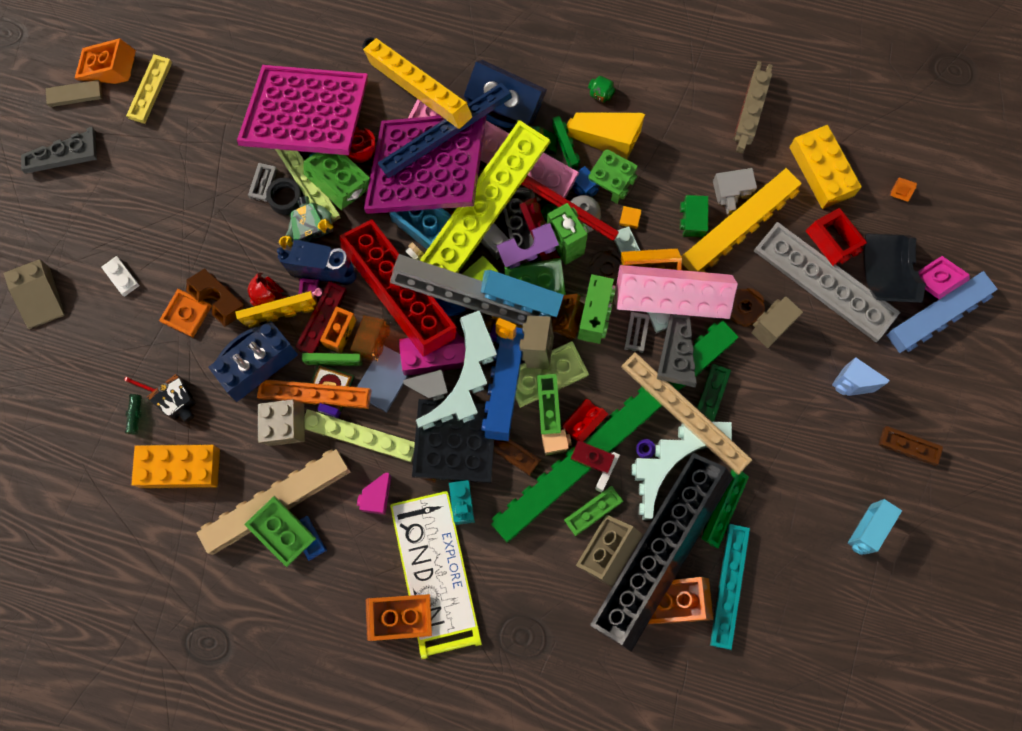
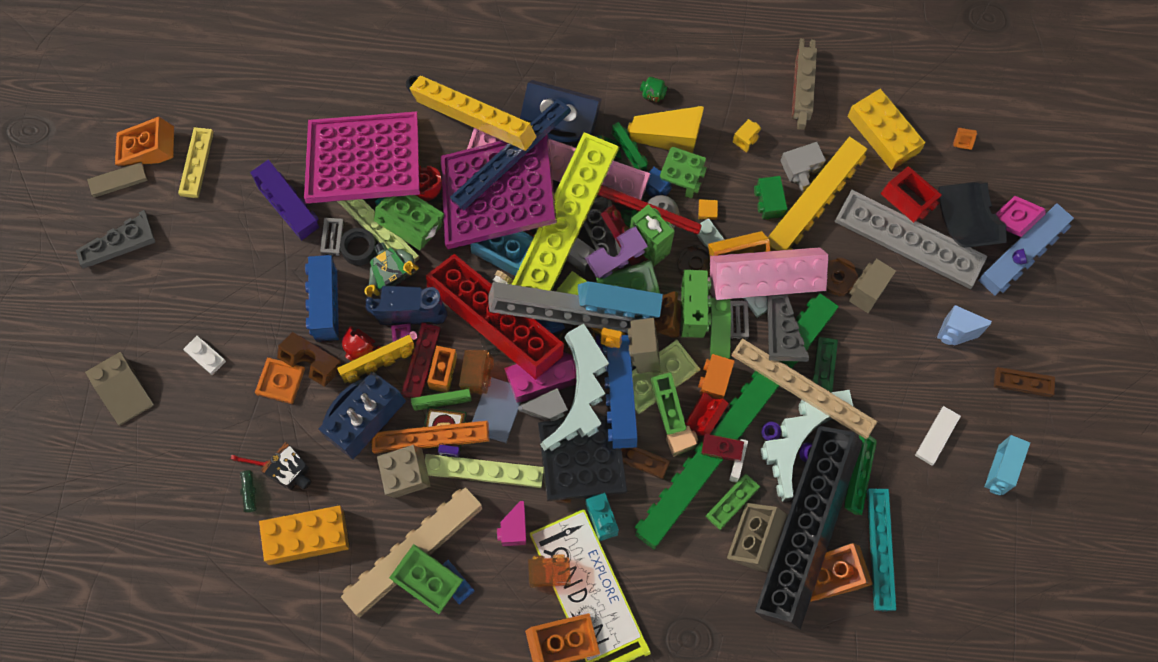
camera: 15 degrees left, 5 degrees down
(223, 138) = (284, 200): none -> dark purple wedge
(238, 241) = (323, 298): none -> blue brick
(399, 546) = (549, 571): none -> clear orange brick
(603, 385) = (716, 377): none -> orange brick
(616, 338) = (720, 327): none -> bright green slope
(674, 474) = (804, 451): none -> dark purple plate
(684, 149) = (747, 135): none -> yellow brick
(811, 483) = (937, 435): none -> white tile
(933, 319) = (1019, 257): none -> dark purple hinge

